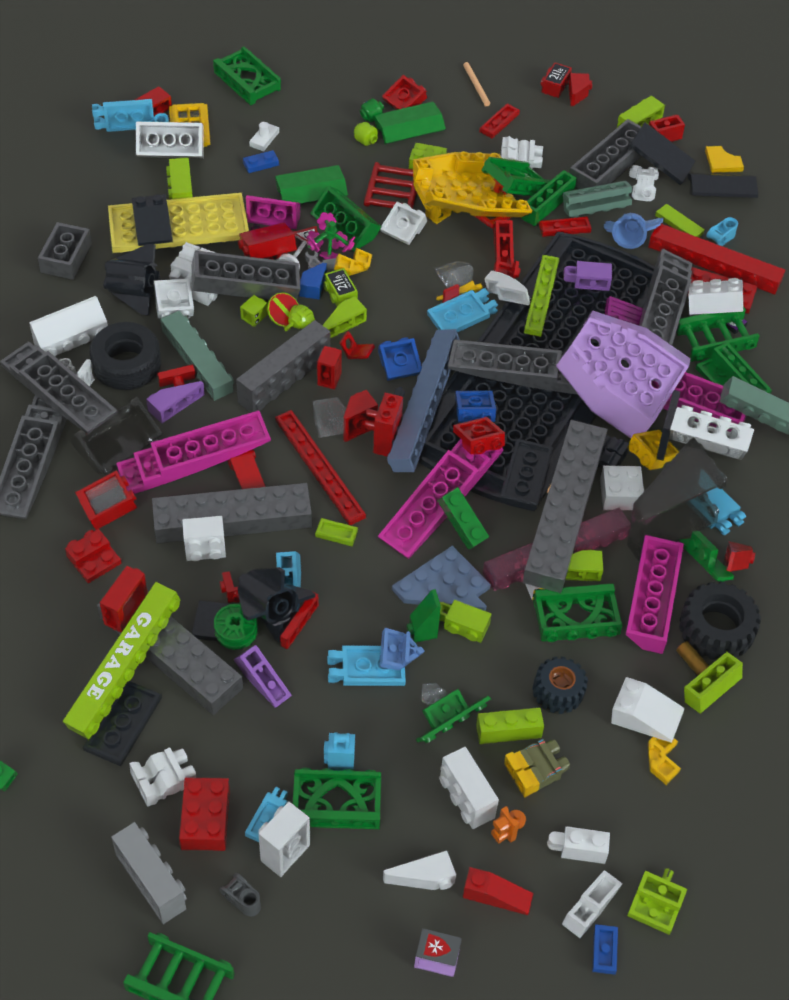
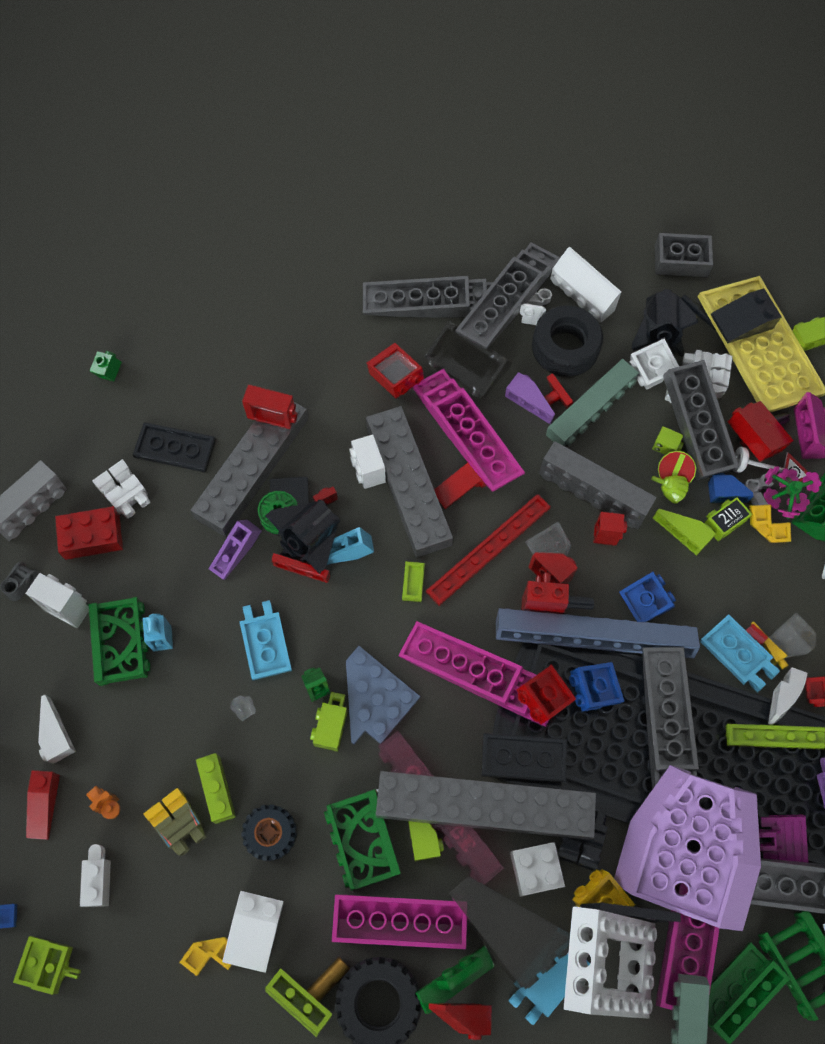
camera: 80 degrees right, 15 degrees up
(92, 555) = (337, 377): red plate -> none
(122, 661) = (218, 426): lime brick -> none
(266, 812) = (96, 585): medium azure hinge -> none
(356, 351) = (649, 553): red bracket -> none
(397, 649) = (282, 664): medium blue slope -> none
(447, 711) = (222, 726): green bracket -> none
(463, 518) = (444, 698): green brick -> none
(468, 788) = (135, 757): white brick -> none
(591, 904) = (39, 899): white slope -> none

